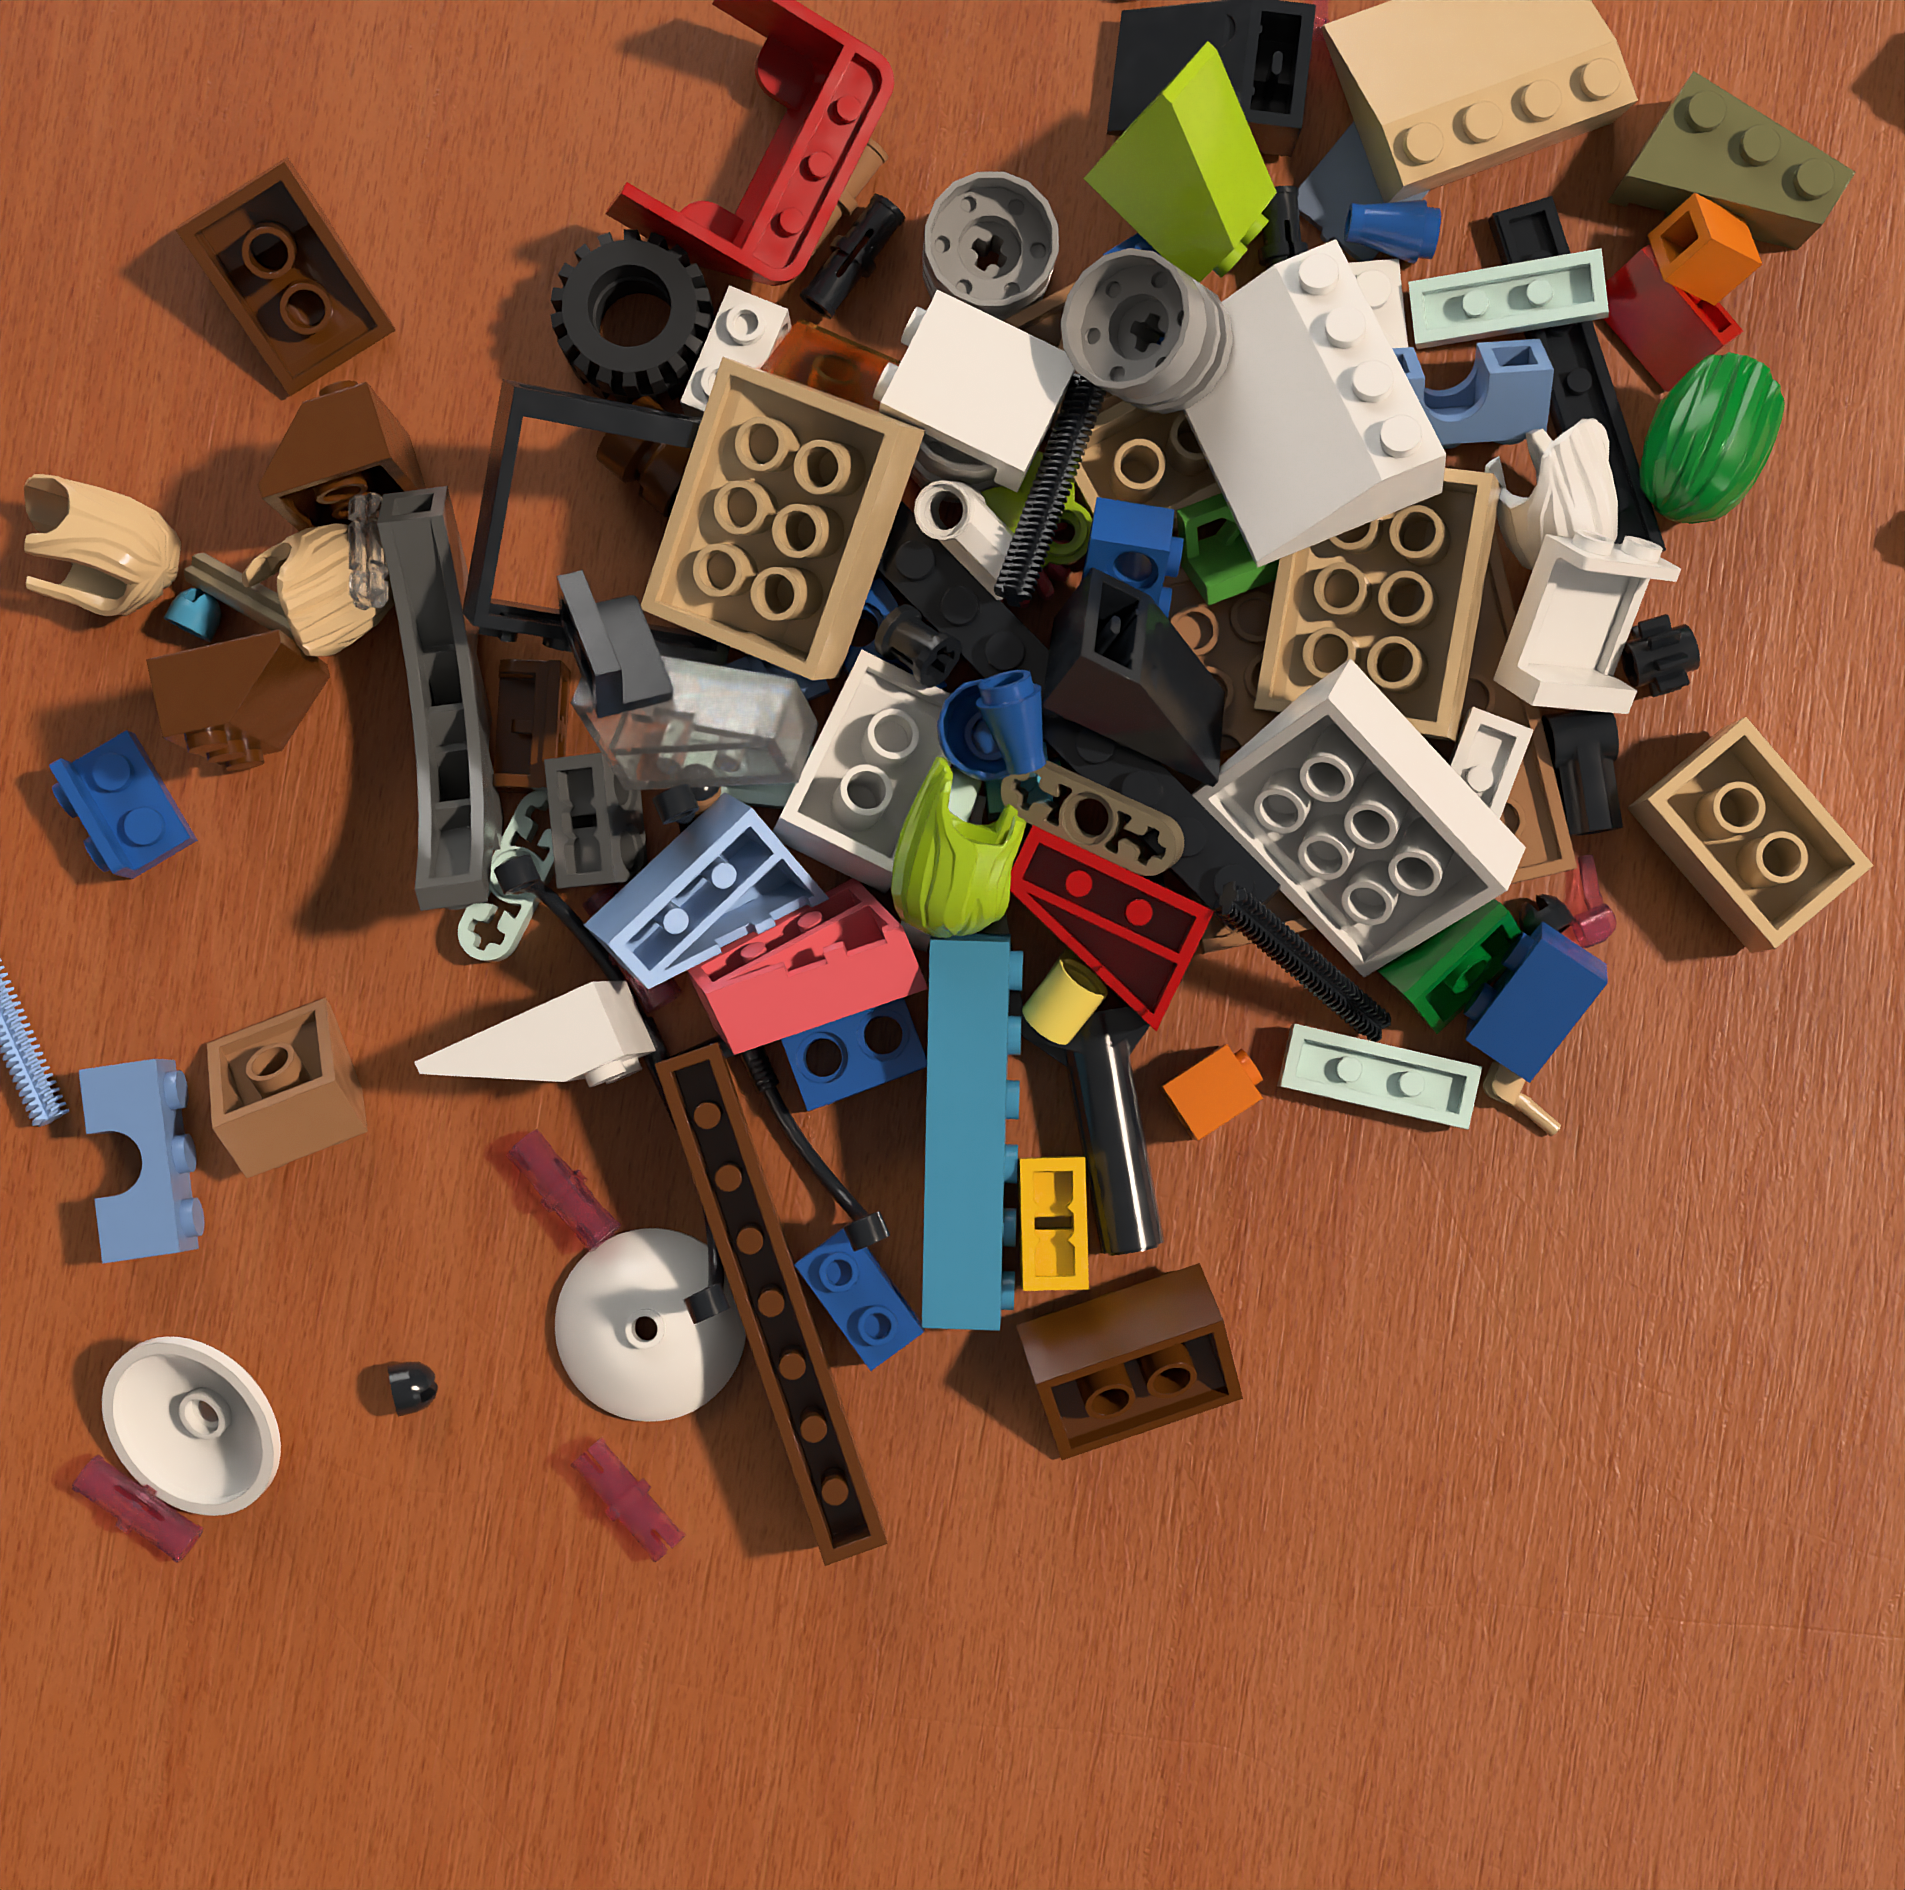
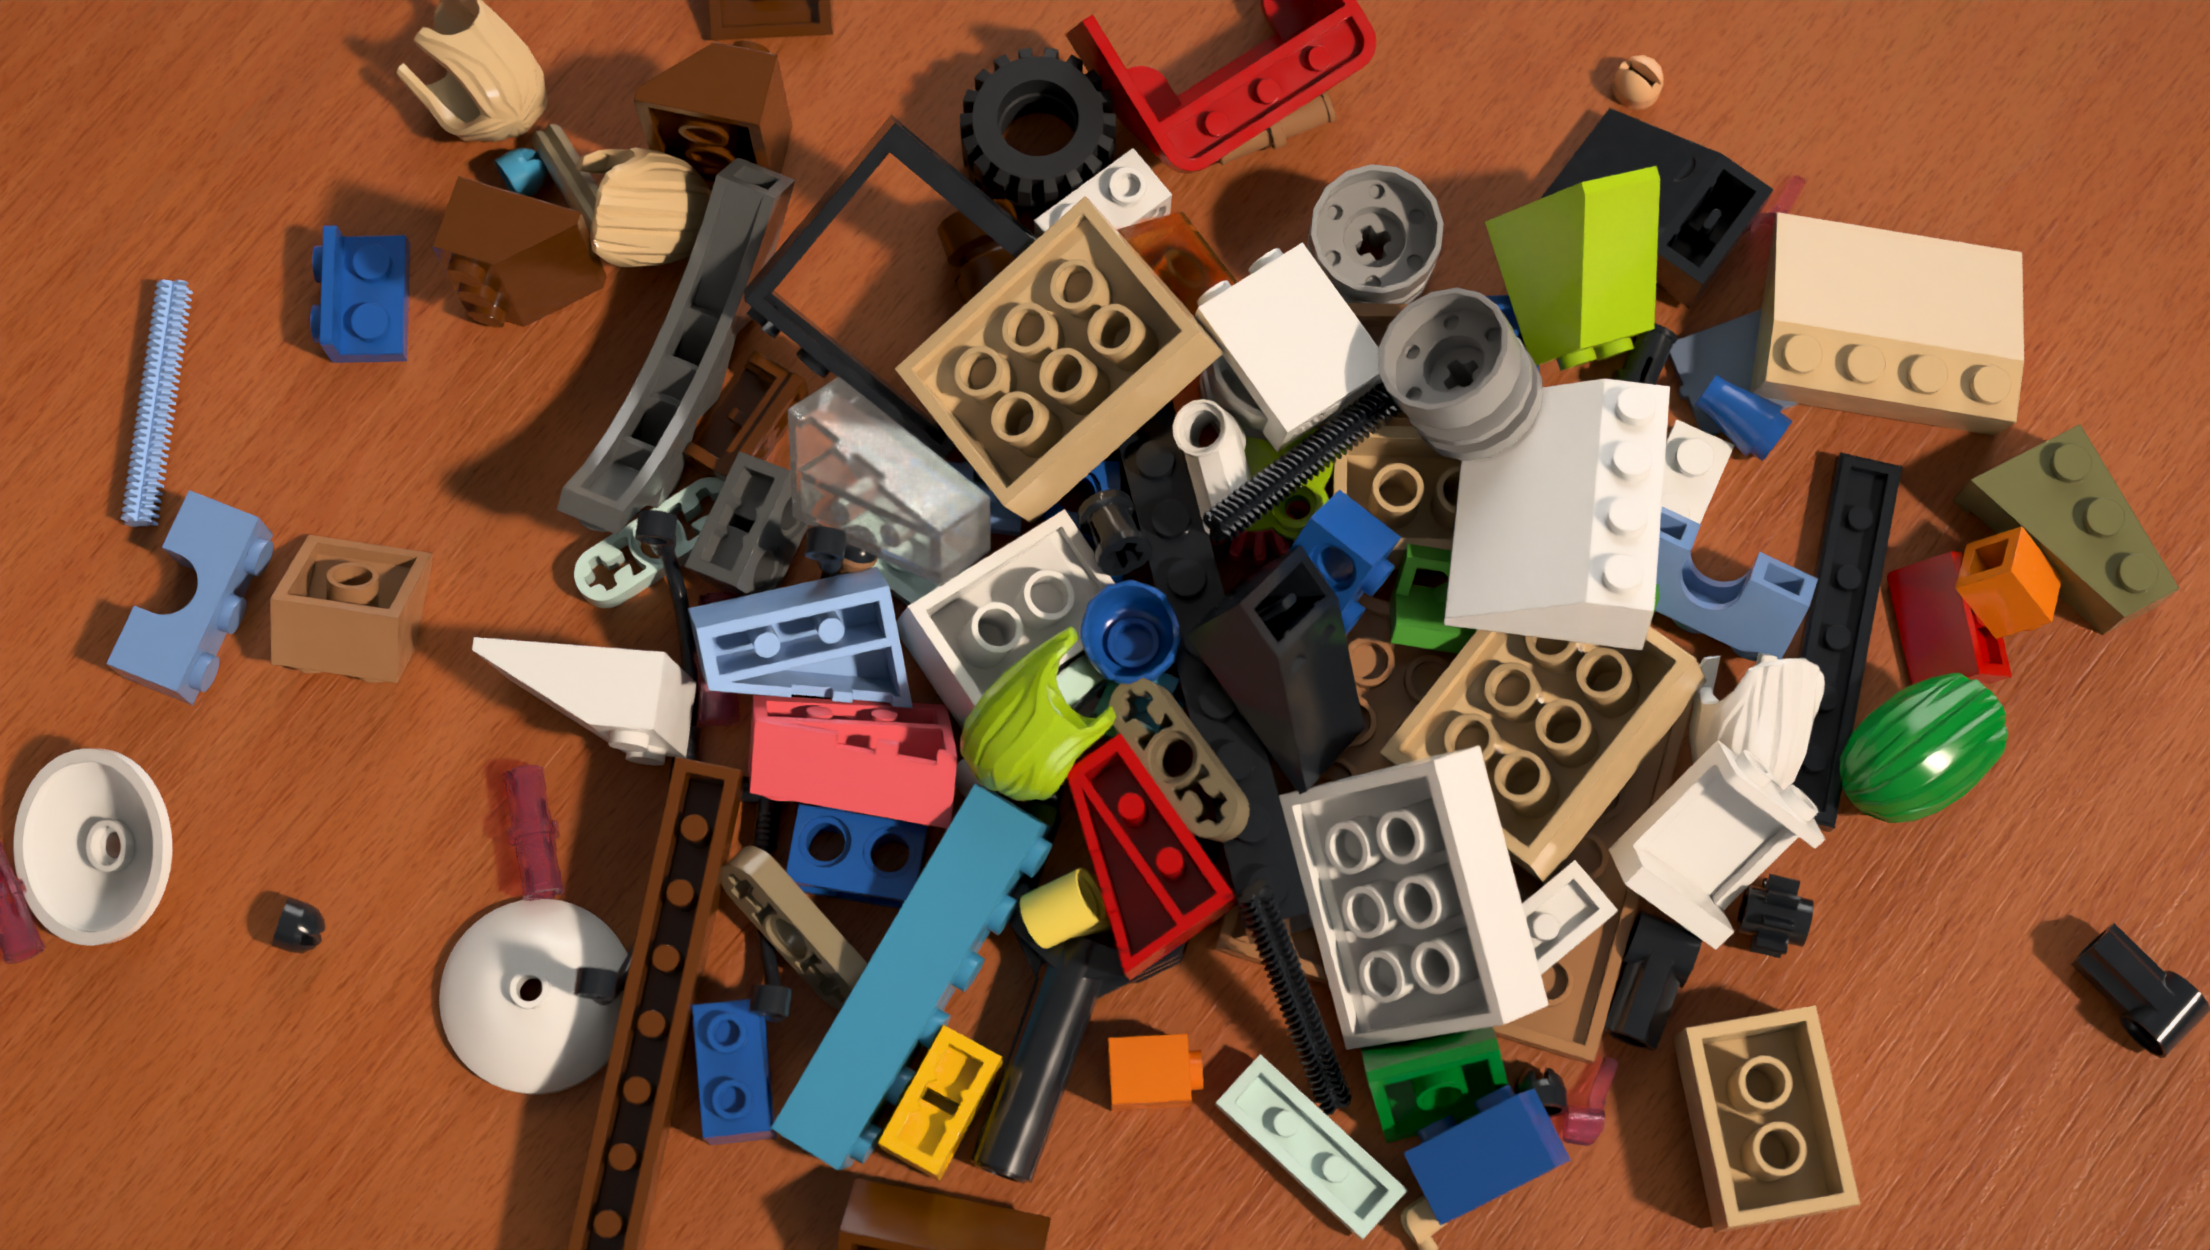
camera: 30 degrees right, 10 degrees down
(366, 553) = (692, 196): clear axle -> none
(612, 649) = (850, 385): panel -> none
(628, 1500) = (423, 1136): clear pink pin -> none
(838, 1143) = (793, 924): none -> dark tan beam
(878, 224) = (1294, 168): black pin -> none
(1014, 718) = (1156, 631): blue cone -> none
(1509, 299) = (1810, 530): light aqua plate -> none

